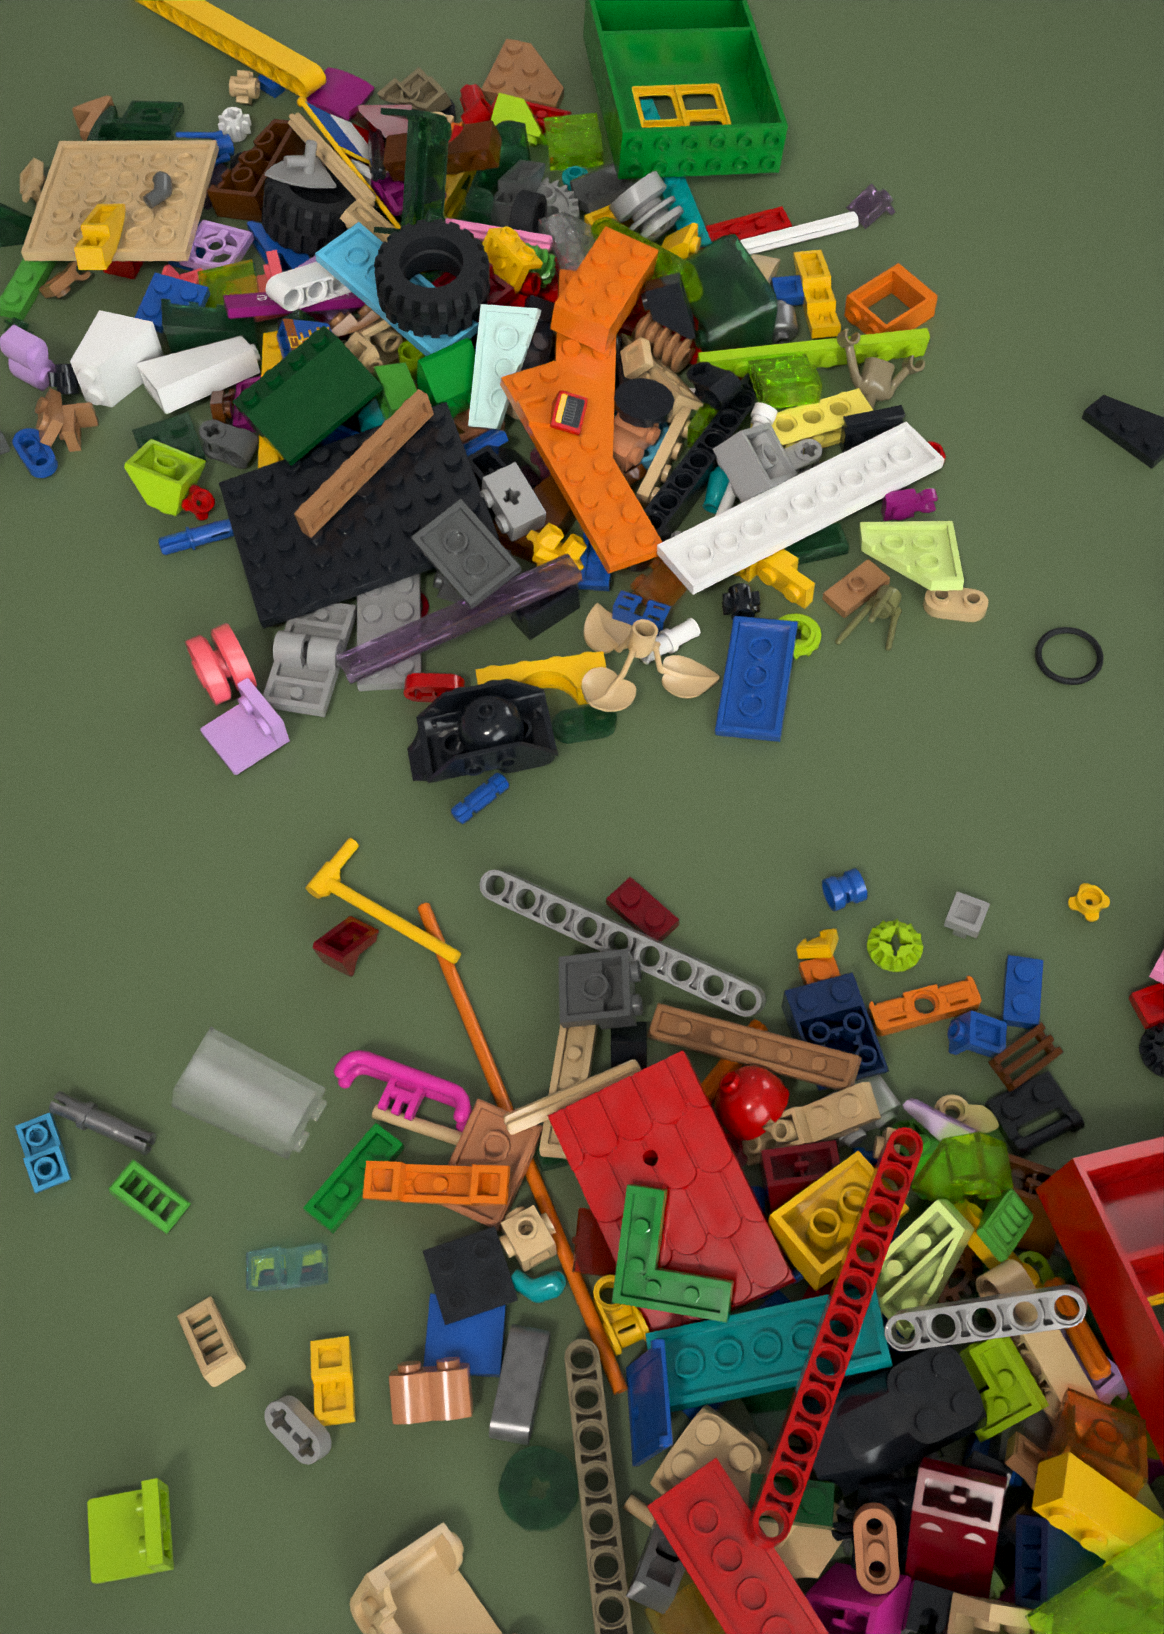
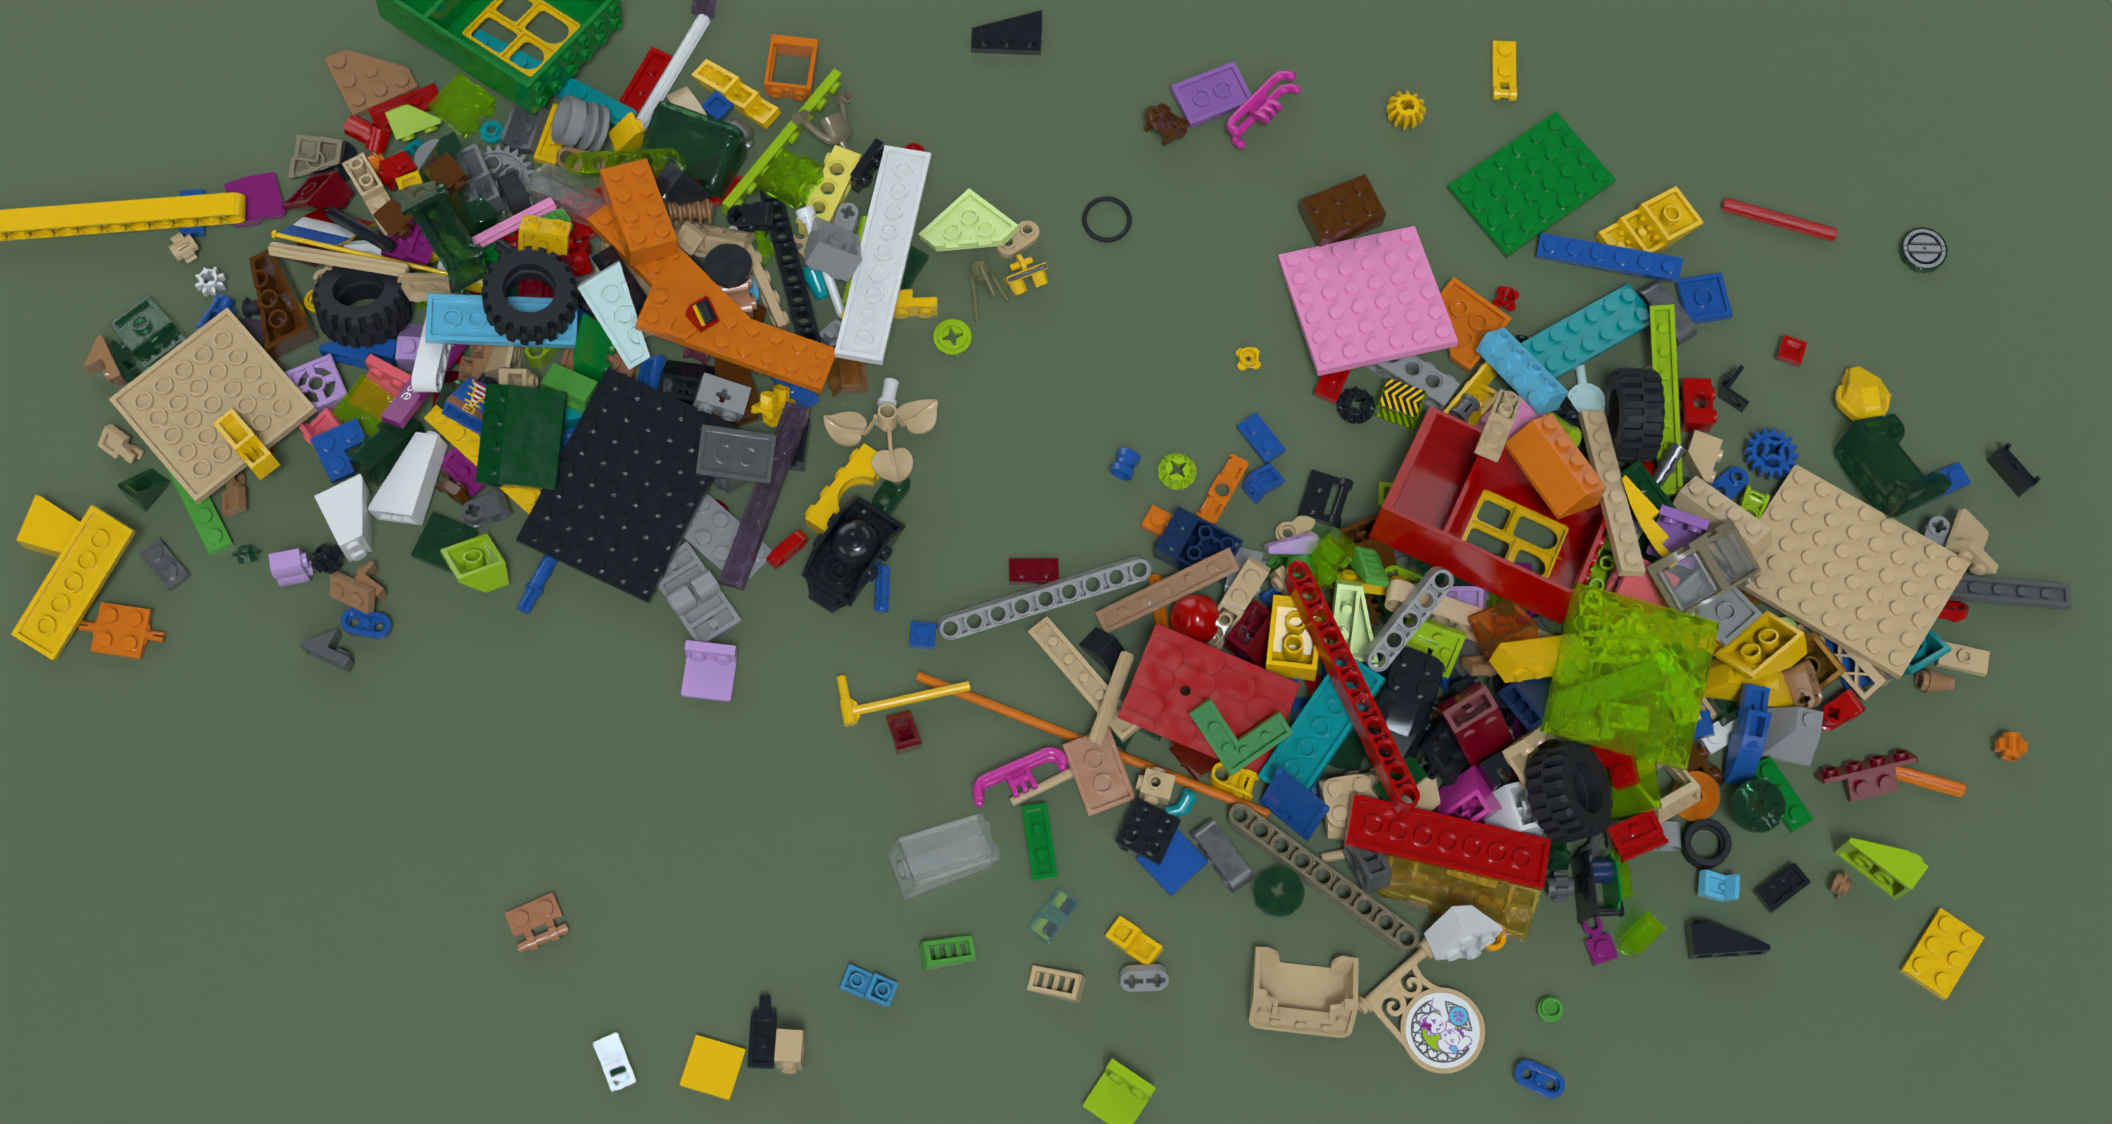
camera: 55 degrees left, 10 degrees up
(90, 1117) = (881, 942): flat silver pin -> none
(161, 191) = (243, 376): dark grey arm -> none
(204, 497) = (514, 562): red plate -> none
(218, 665) = (656, 646): coral wheel -> none
(302, 170) = (334, 285): light grey shield -> none
(364, 463) = (609, 460): medium nougat plate -> none
(431, 1392) = (1188, 899): nougat brick -> none
(436, 1183) = (1088, 803): orange slope -> none
(467, 873) = (922, 635): none -> blue plate
(599, 989) = (1064, 632): dark grey plate -> none
(629, 616) = (855, 407): blue piece -> none
(741, 601) = (904, 344): black gear -> none
(756, 678) = (959, 382): blue tile -> none
(820, 946) = (1142, 506): yellow tile -> none
(855, 588) = (955, 277): medium nougat plate -> none
(876, 1545) = (1452, 764): nougat plate -> none
(903, 503) = (931, 201): magenta plate -> none
(941, 642) = (1036, 273): none -> yellow hips
(966, 915) = (1199, 422): light grey tile -> none
(1045, 1043) = (1297, 456): reddish brown tile -> none
(1082, 1336) = (1458, 590): orange axle -> none

